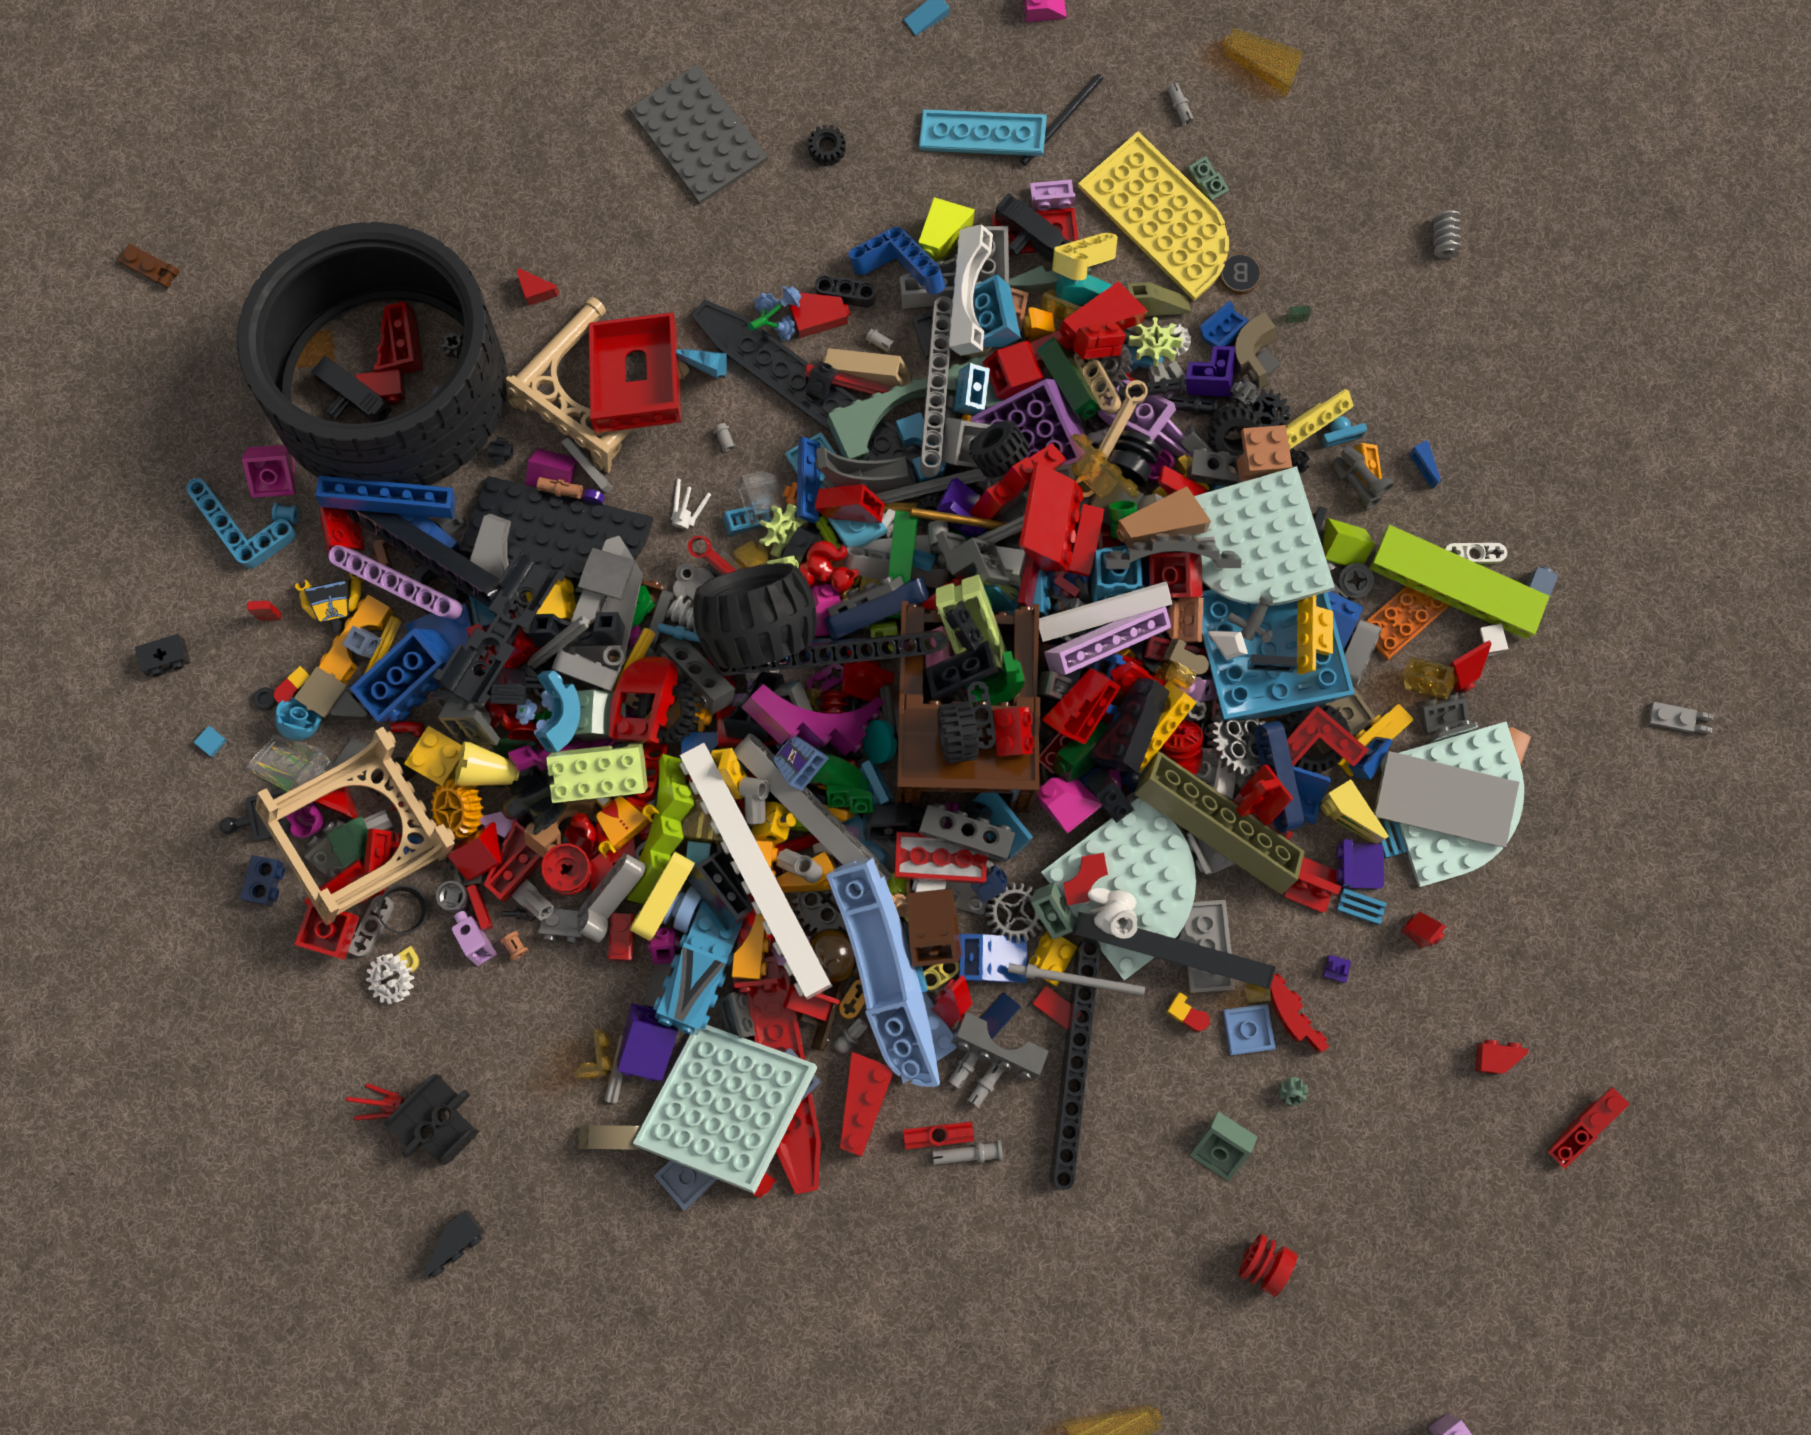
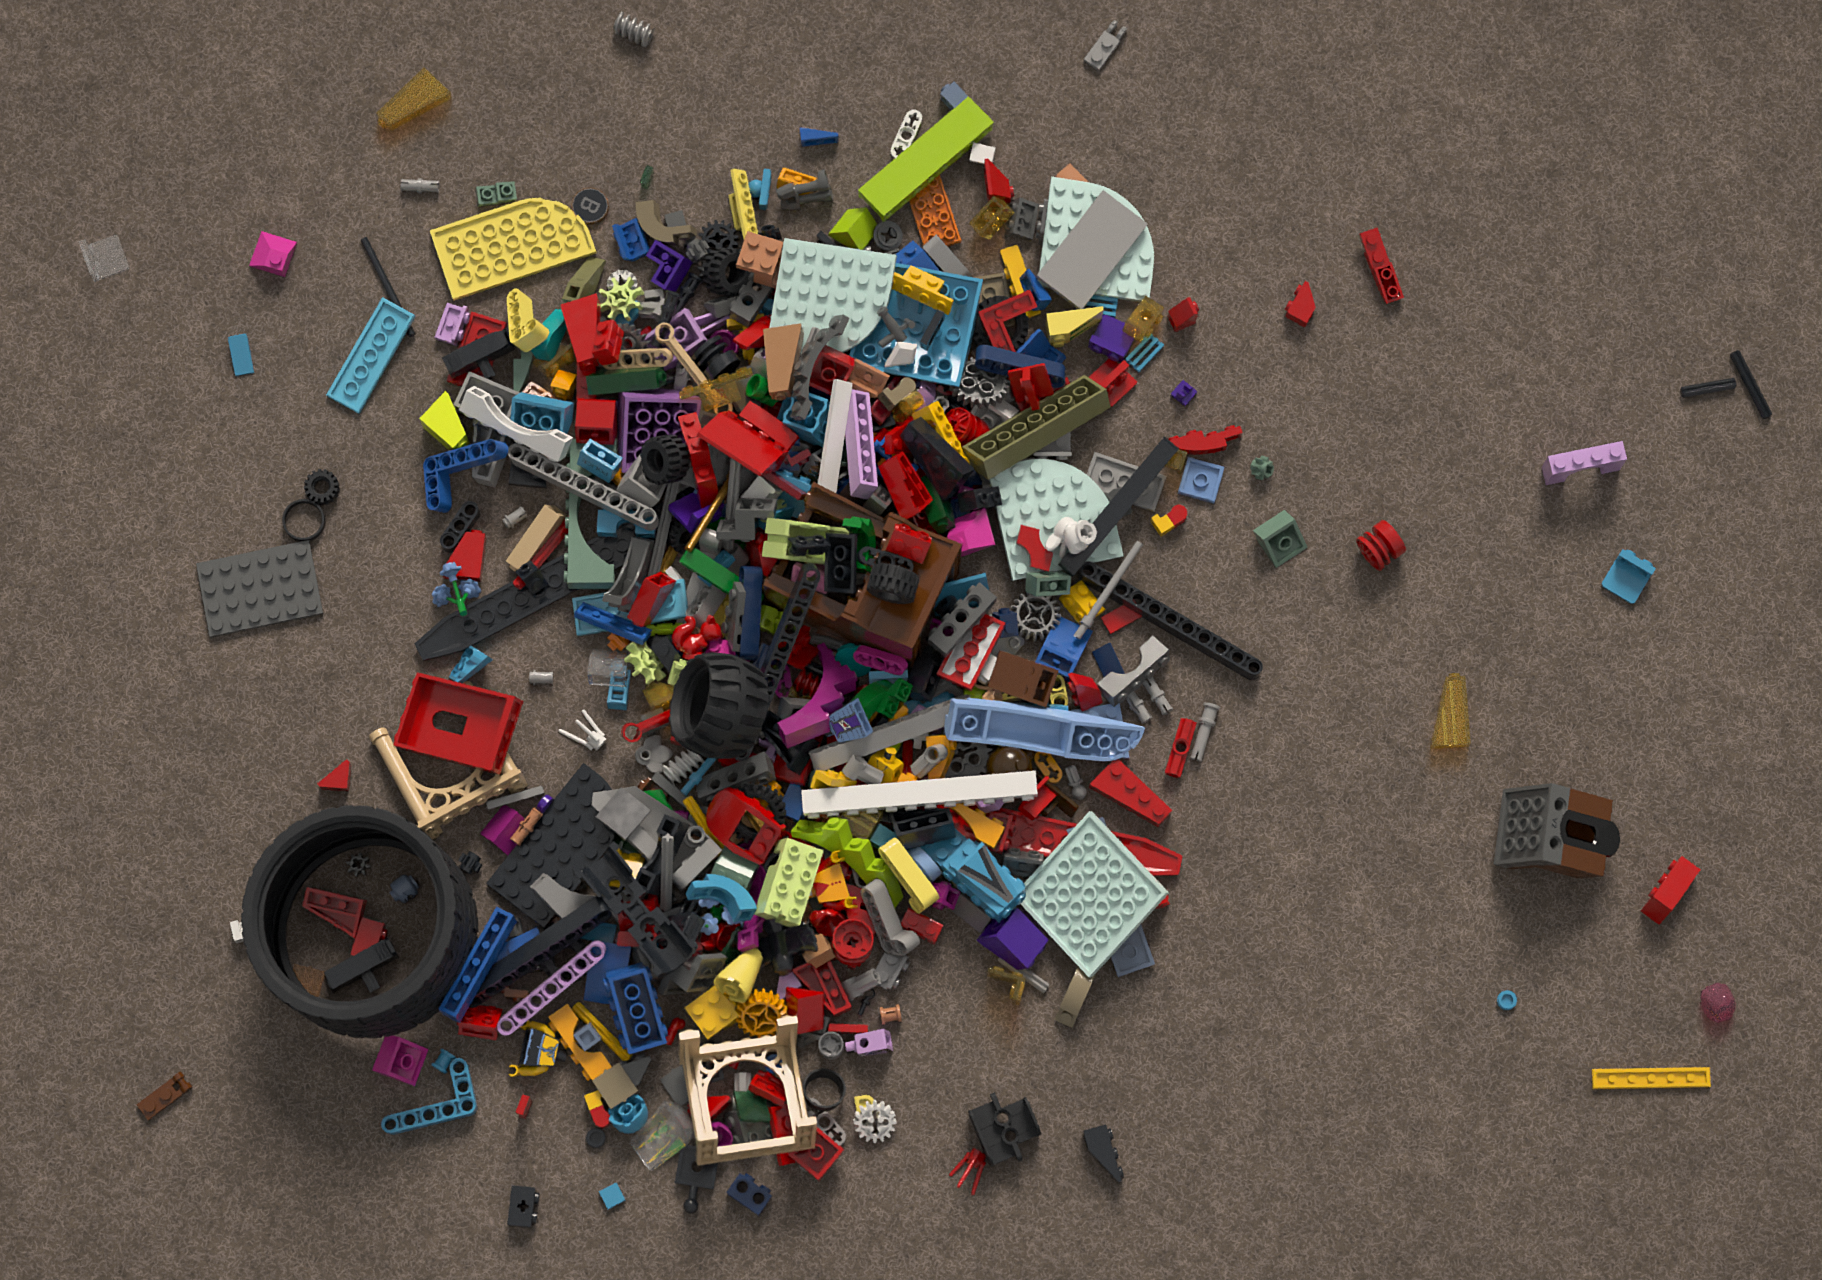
camera: 65 degrees left, 0 degrees up
(785, 124) = (301, 501): none -> black tyre
(886, 766) = (892, 663): none -> dark pink beam
(1409, 888) = (1147, 310): none -> clear yellow brick

